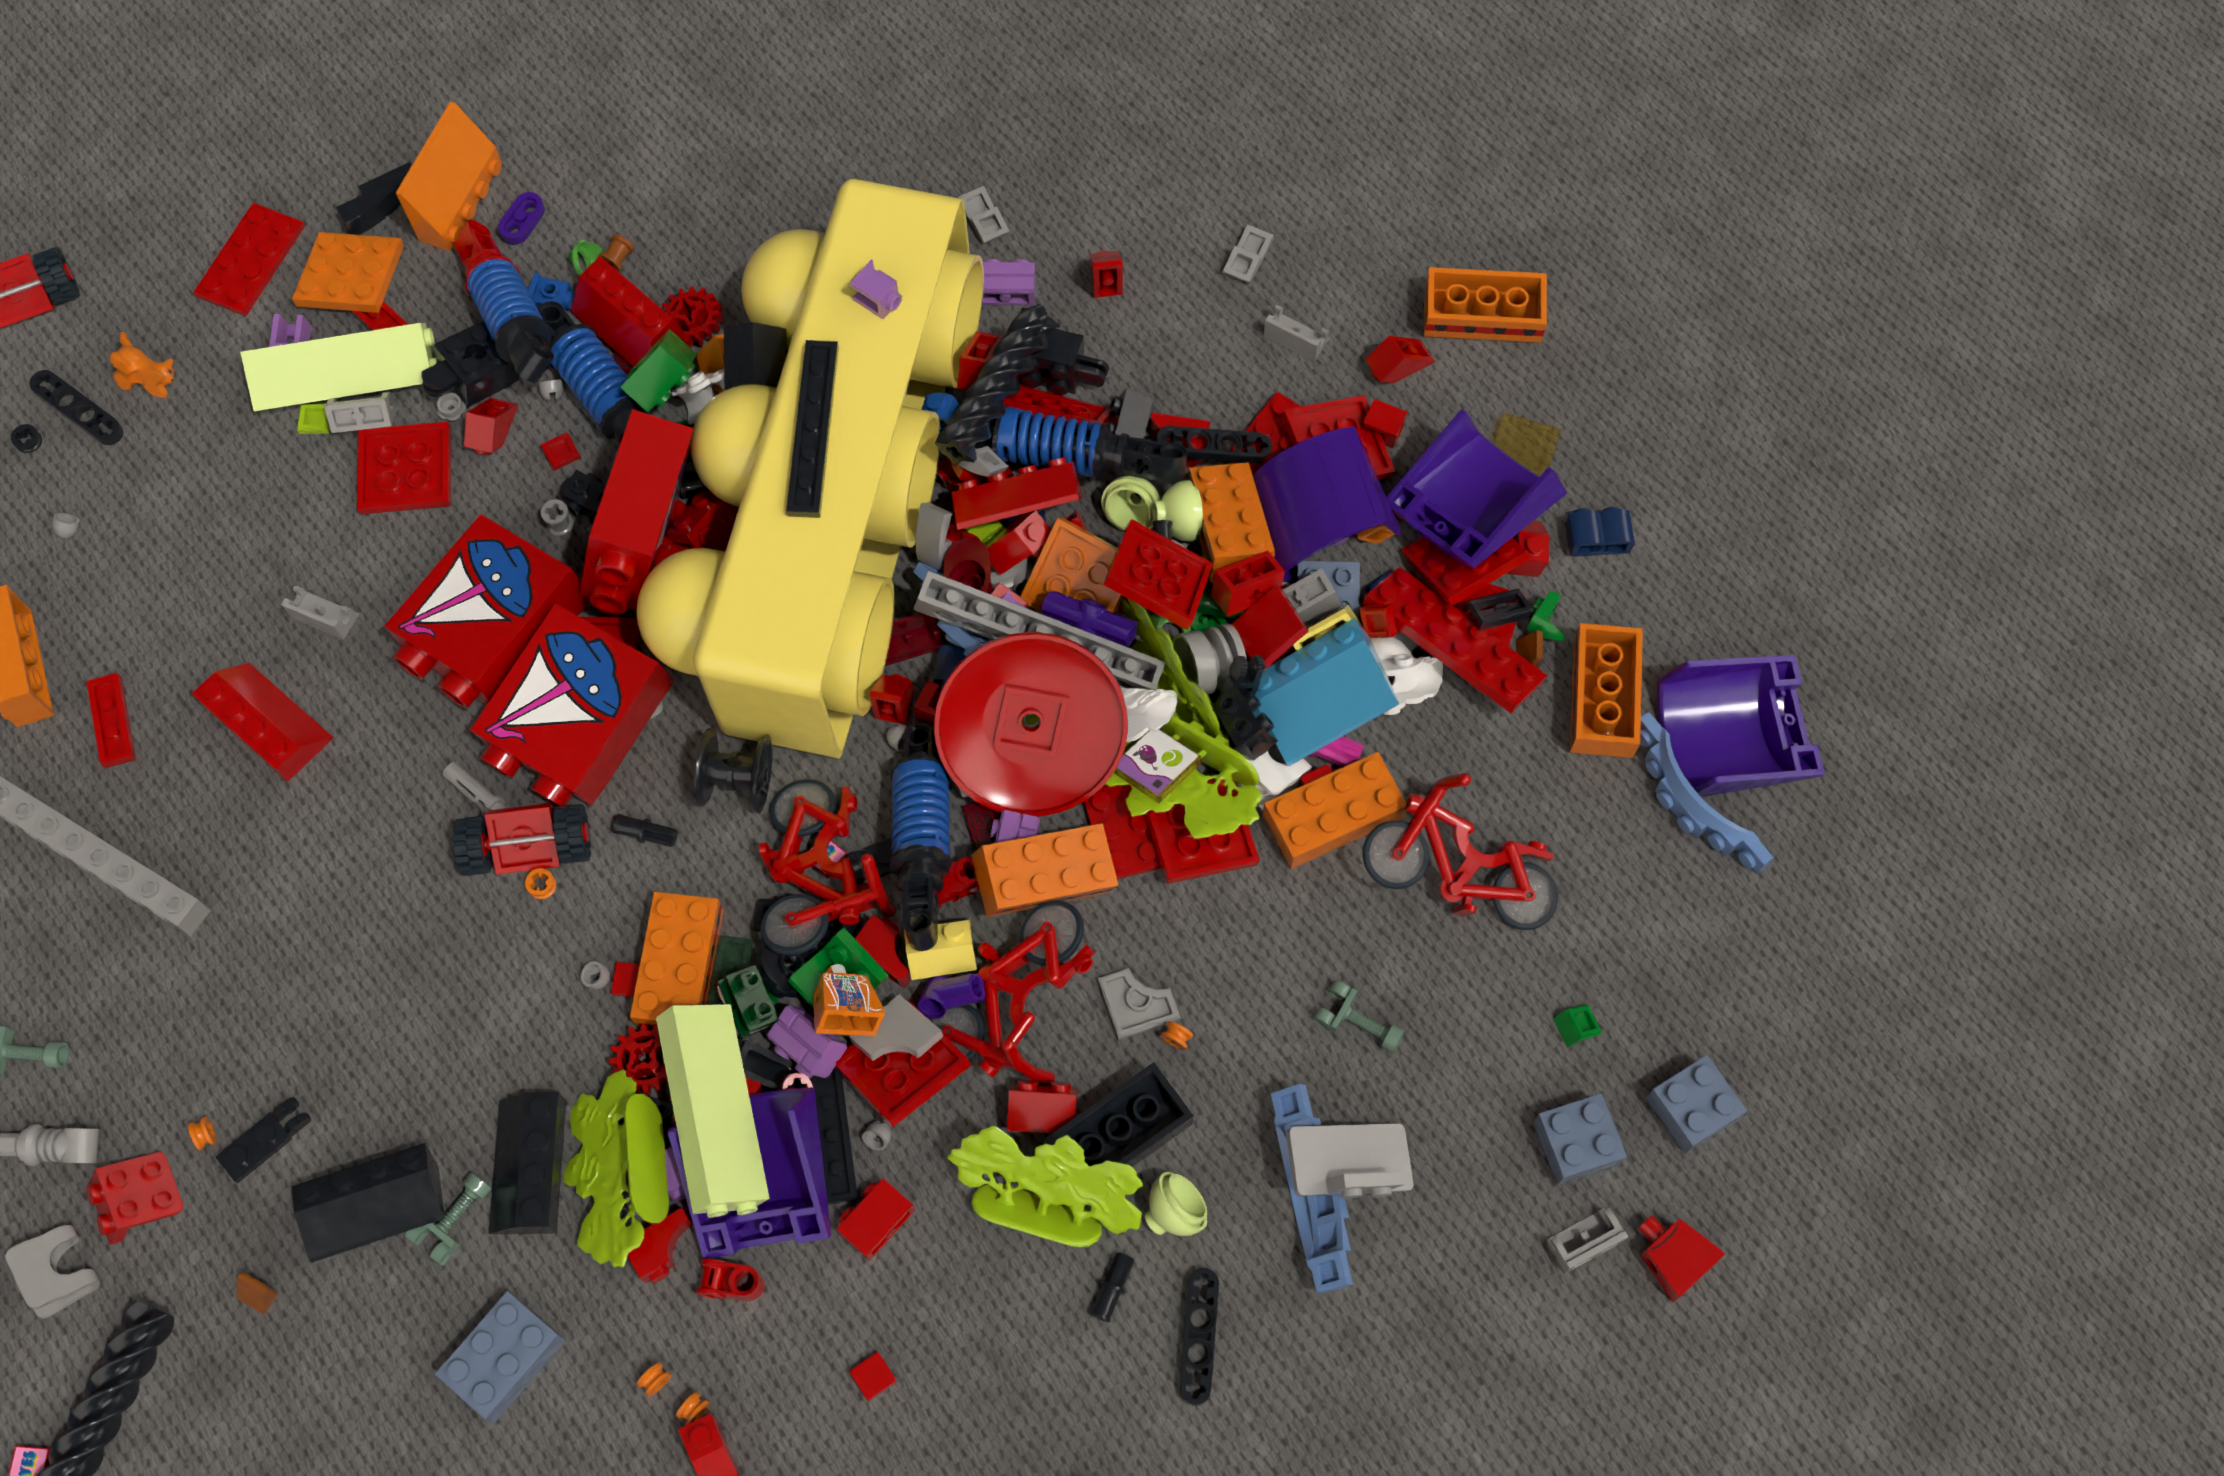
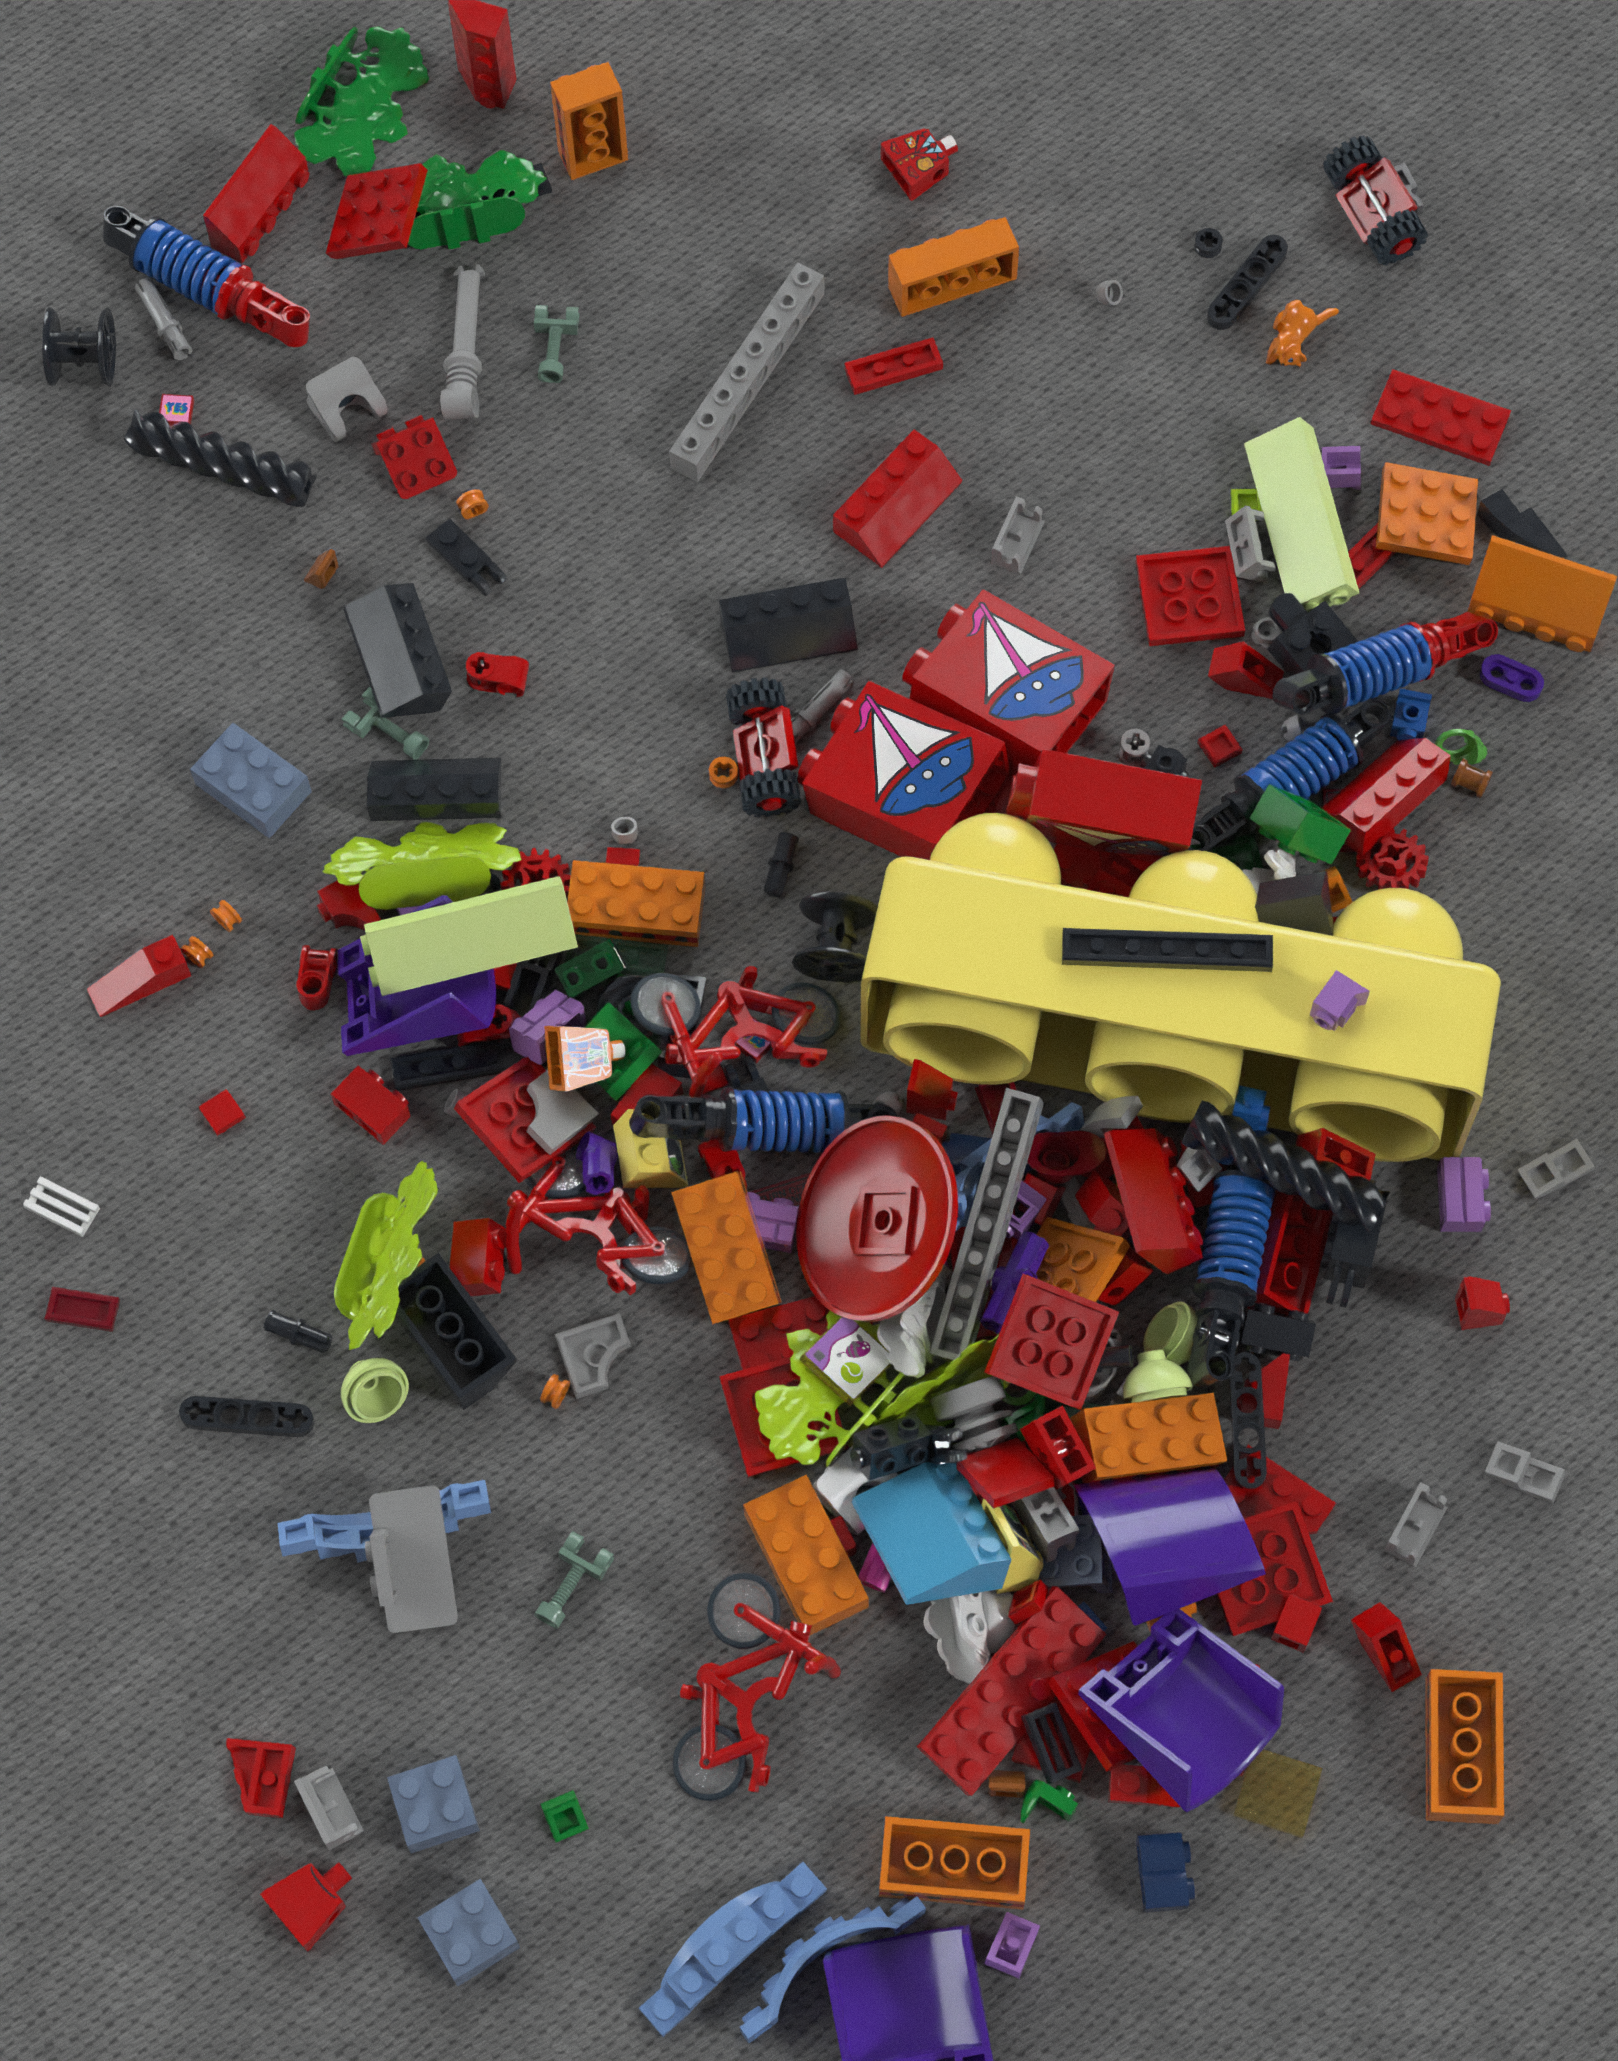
camera: 90 degrees right, 0 degrees up
(388, 820) = (788, 624): none -> black slope
(406, 1097) = (499, 673): none -> red piece
(1558, 1305) = (263, 1775): none -> red wing
(1673, 646) = (1012, 1945): none -> medium lavender slope
(1688, 878) = (726, 1942): none -> medium blue piece

